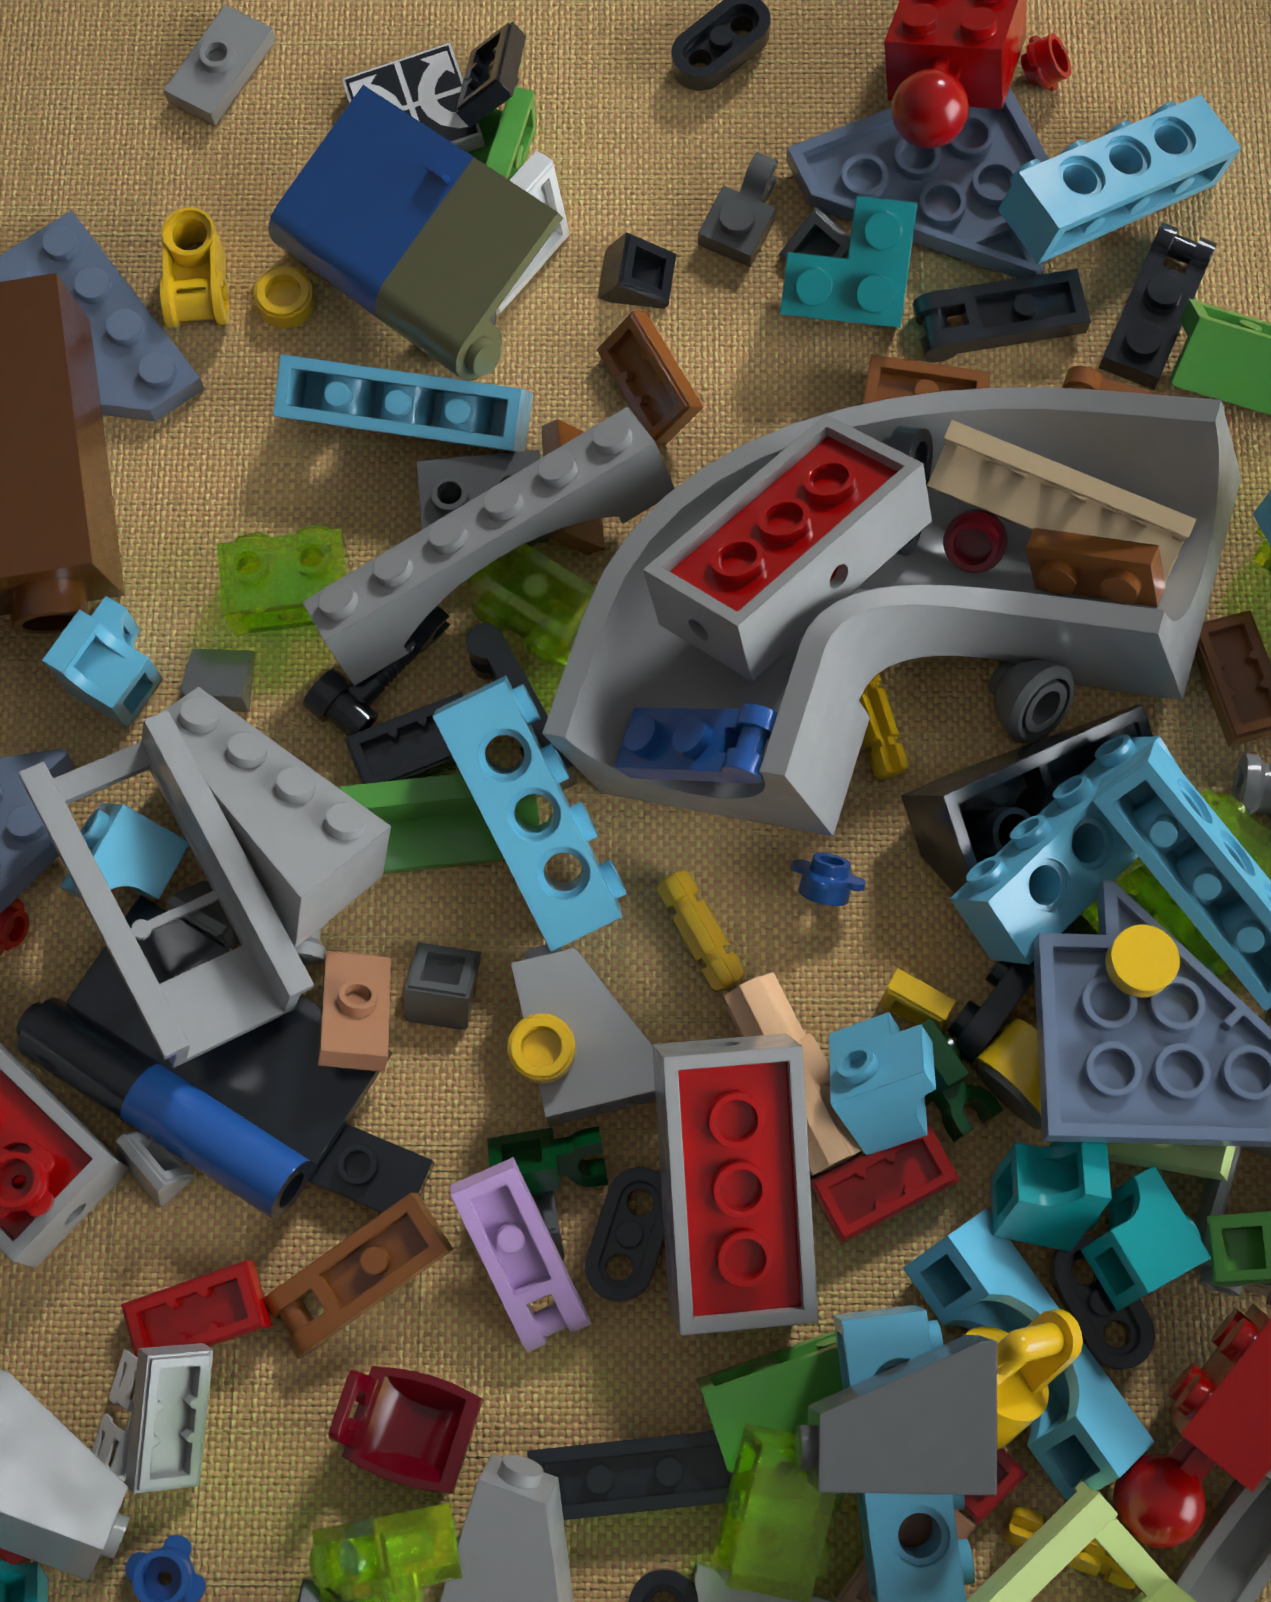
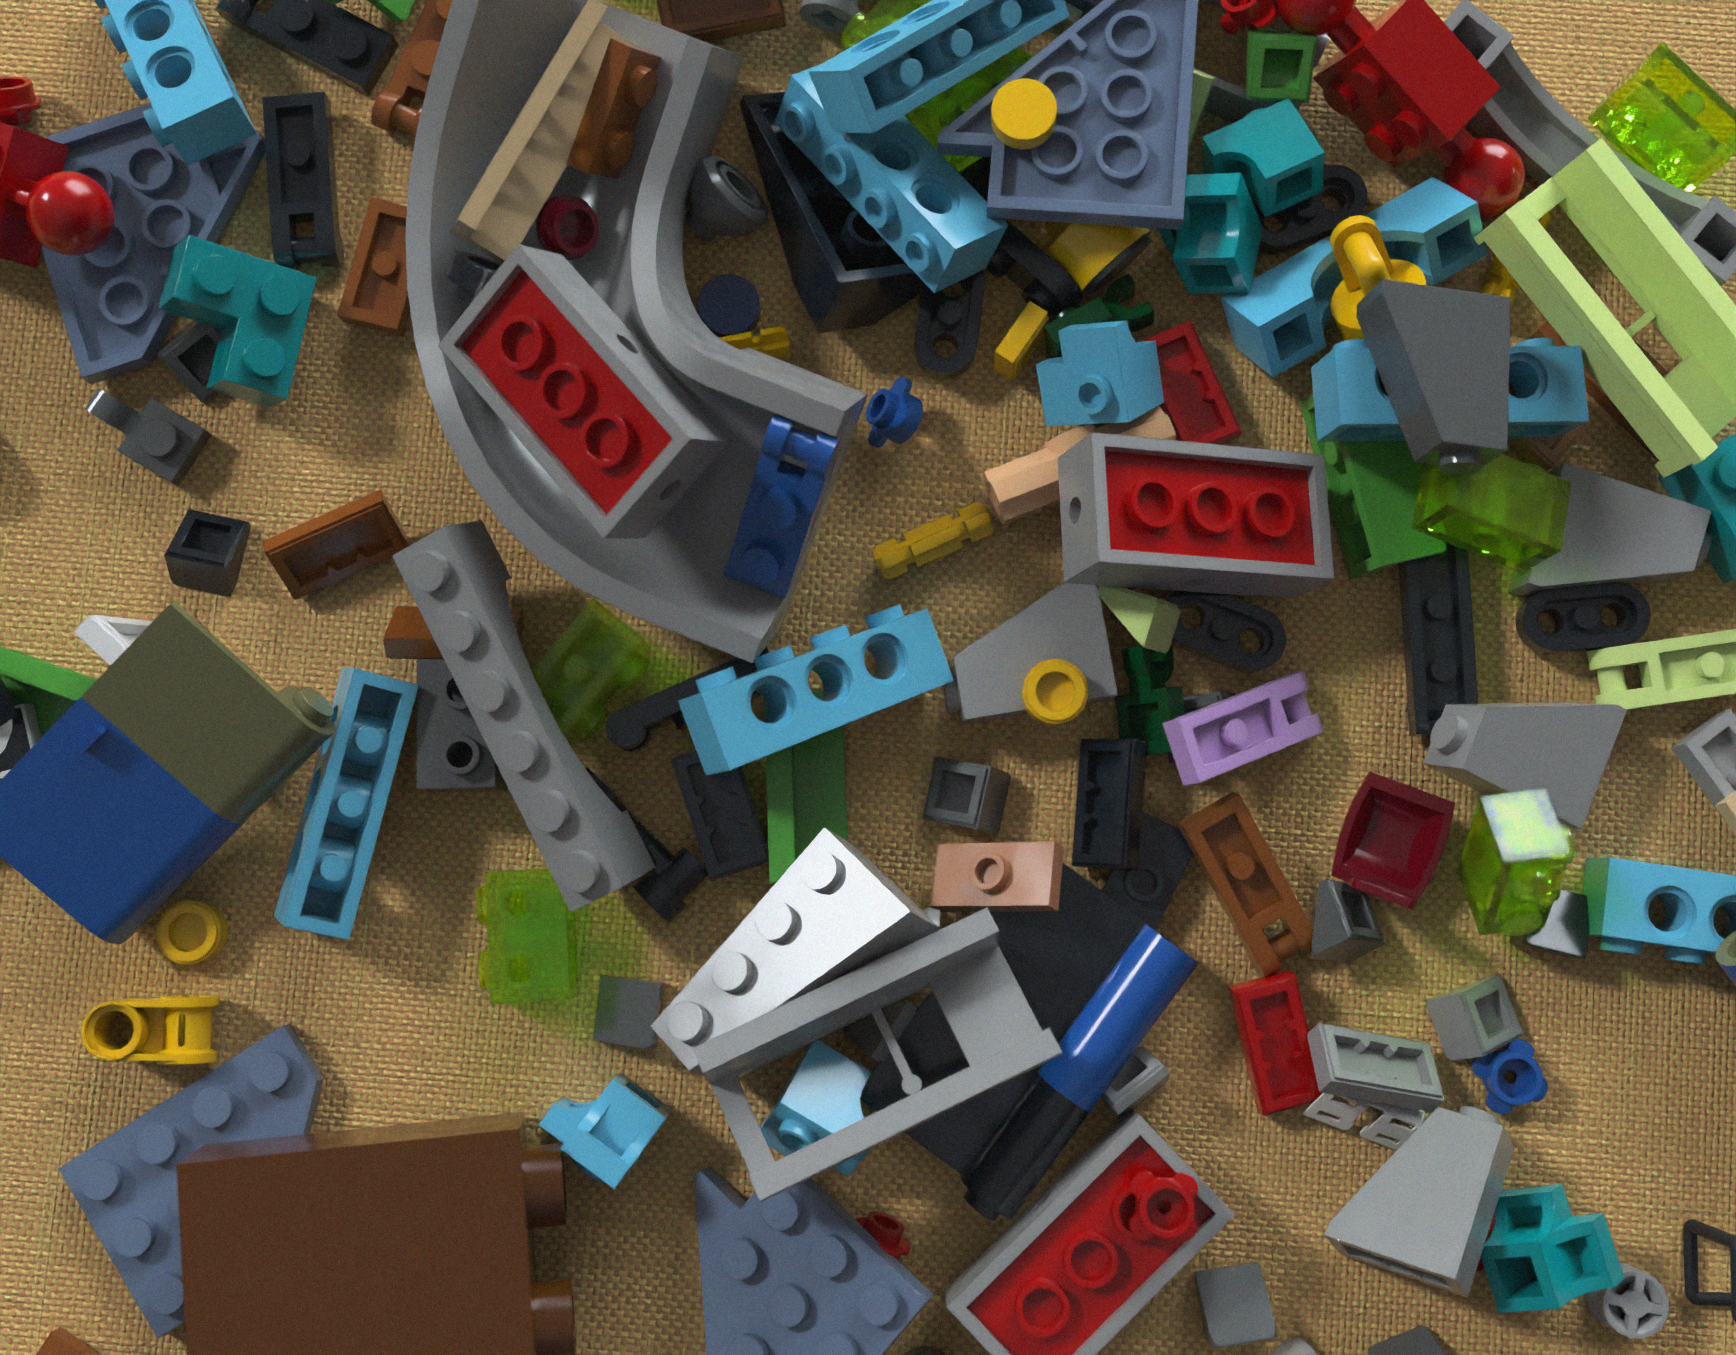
camera: 90 degrees left, 10 degrees up
(227, 1539) = (1474, 1019): none -> light grey slope
(317, 1377) = (1343, 923): none -> dark grey slope
(436, 1124) = (1109, 804): none -> black plate
(628, 1140) = (1144, 616): none -> yellowish green slope
(924, 714) = (729, 305): none -> dark blue tile
(936, 931) = (952, 321): none -> black plate

